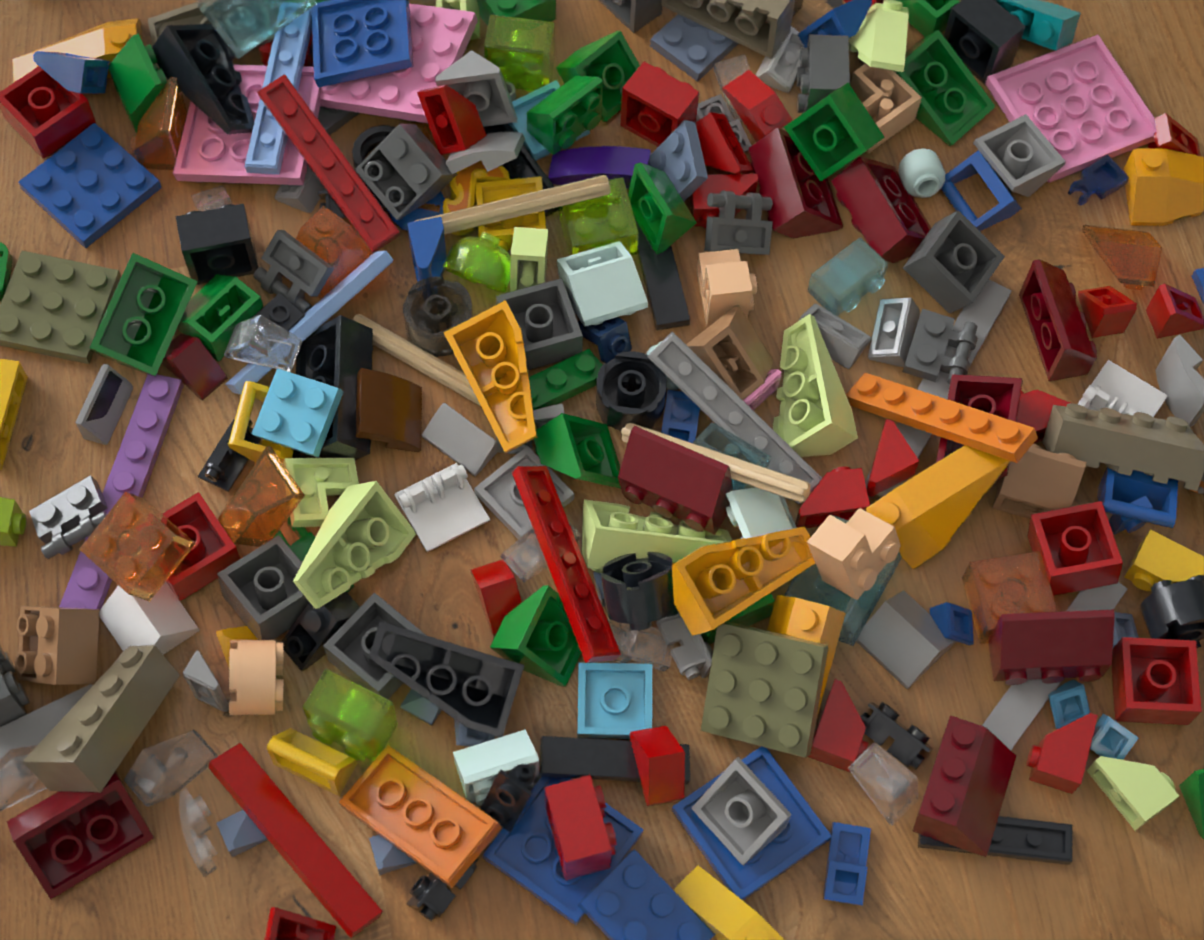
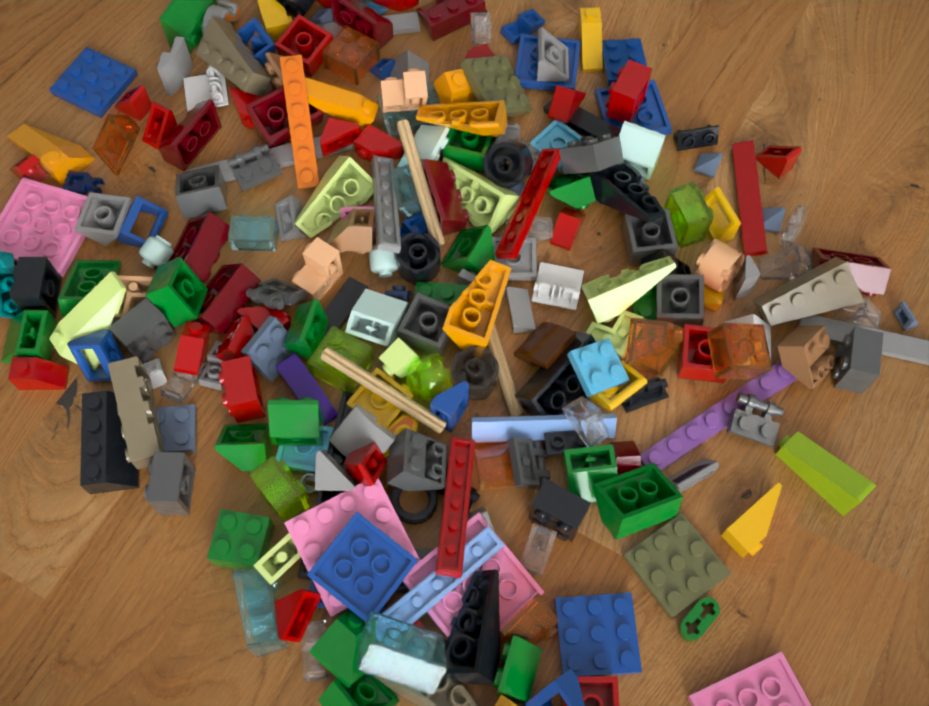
camera: 135 degrees left, 0 degrees up
(420, 815) = (687, 153): orange tile -> none
(509, 795) = (645, 119): black hinge -> none
(543, 686) = (591, 154): none -> dark grey brick
(894, 331) = (261, 198): light grey slope -> none
(907, 742) = (453, 43): black hinge -> none

